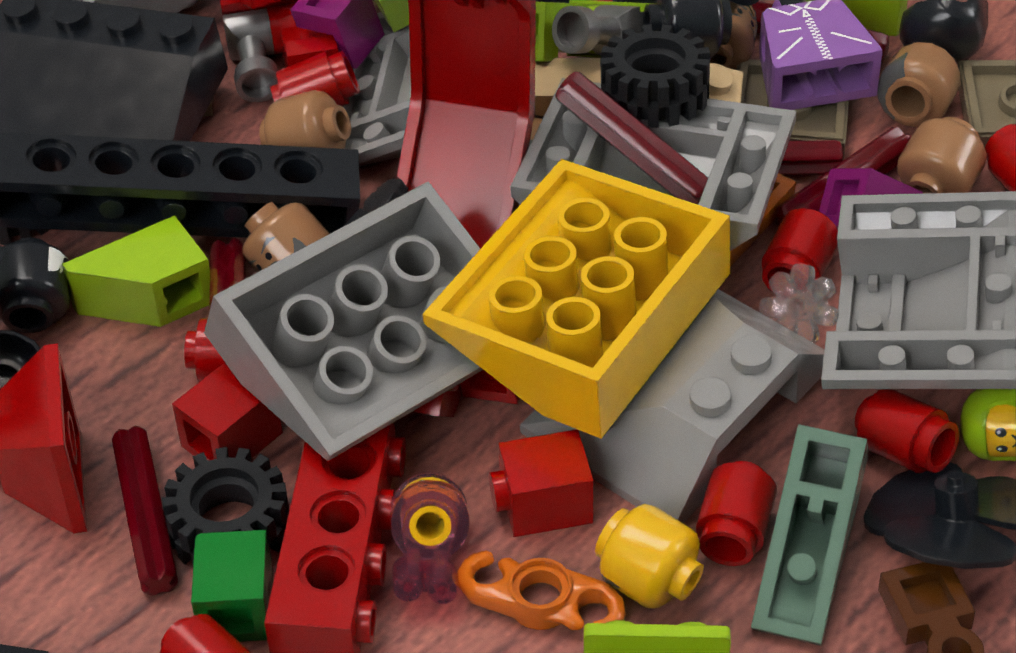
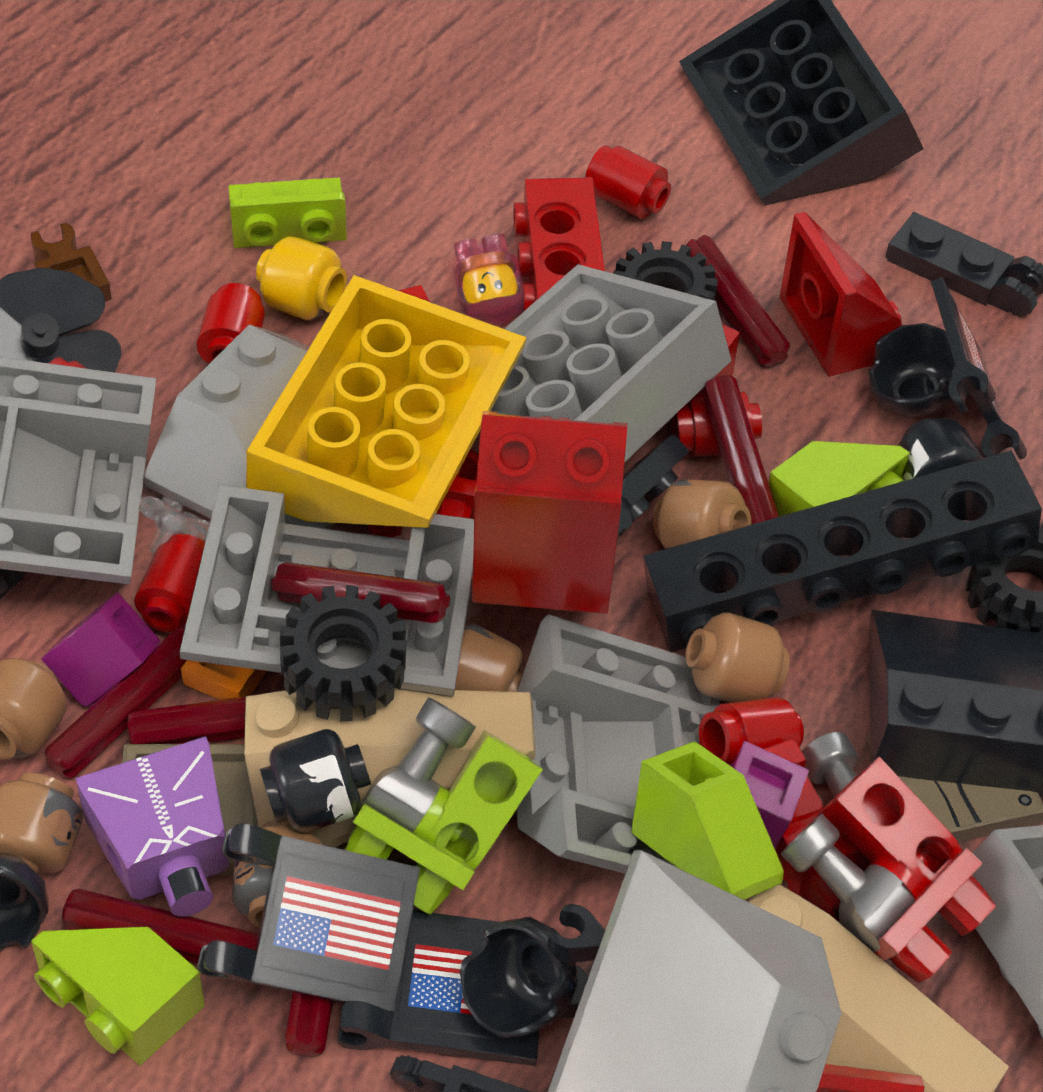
camera: 165 degrees right, 5 degrees up
(233, 581) = (630, 220): green panel -> none
(506, 598) = (414, 262): orange piece -> none
(810, 534) = (162, 320): sand green slope -> none

